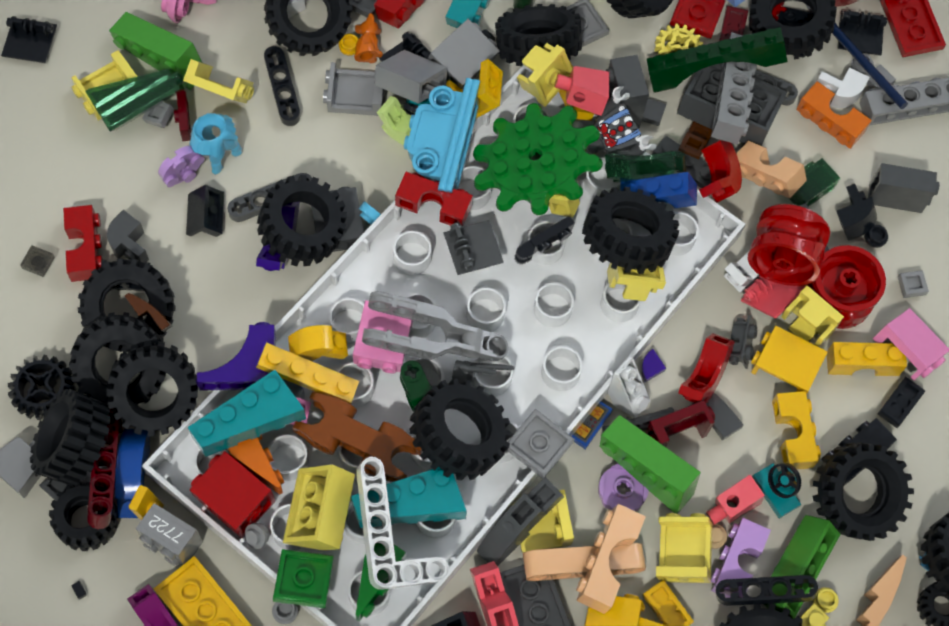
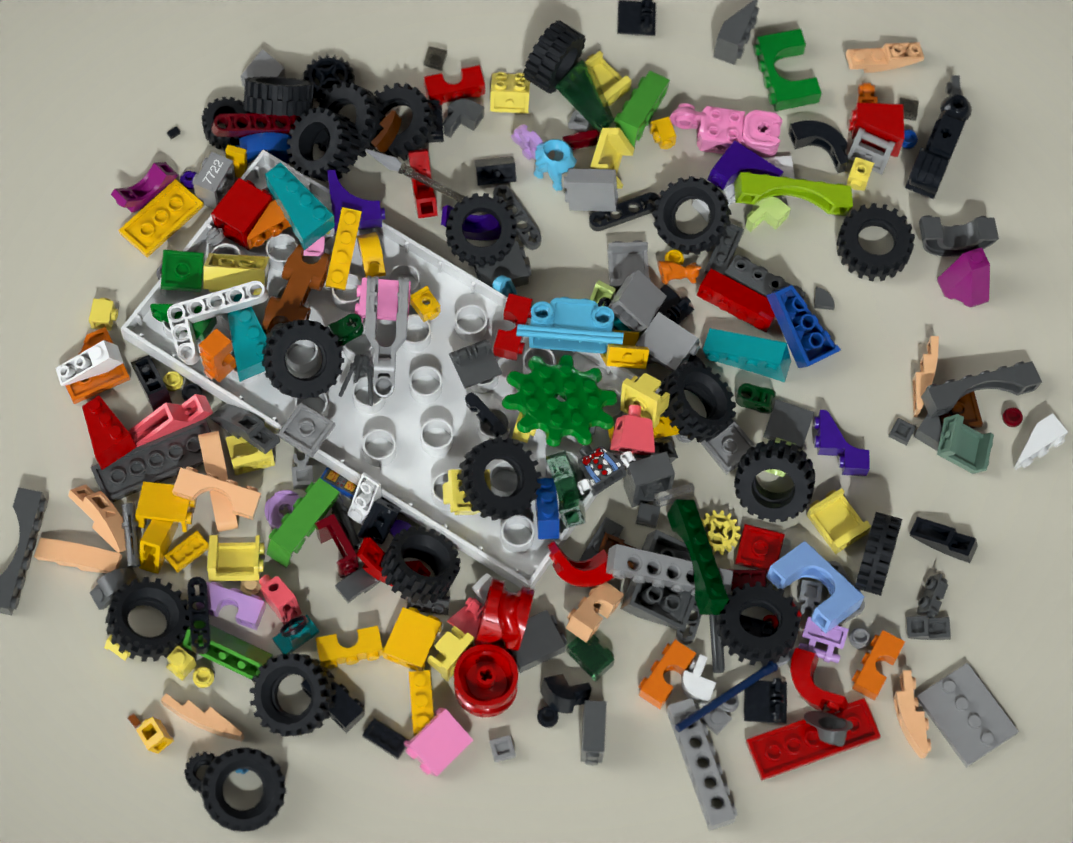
camera: 85 degrees right, 0 degrees up
(76, 118) = (554, 56): none -> black tyre
(103, 181) = (509, 93): none -> light yellow bracket
(157, 578) = (184, 179): none -> dark purple plate
(188, 313) = (394, 164): none -> clear smoke piece
(191, 29) = (663, 132): none -> yellow brick
(218, 293) = (423, 195): none -> red arch
(258, 106) = (591, 189): none -> light grey brick
(387, 284) = (418, 302): none -> yellow brick
(438, 611) = (173, 381): none -> light yellow plate
(445, 531) = (216, 355): none -> orange arch
(457, 590) = (190, 390): none -> black plate
(579, 465) = (302, 474): none -> light grey plate
(653, 382) = (379, 521): none -> black hinge
(709, 316) = (431, 550): none -> black tyre
(801, 67) = (717, 648): none -> dark grey axle

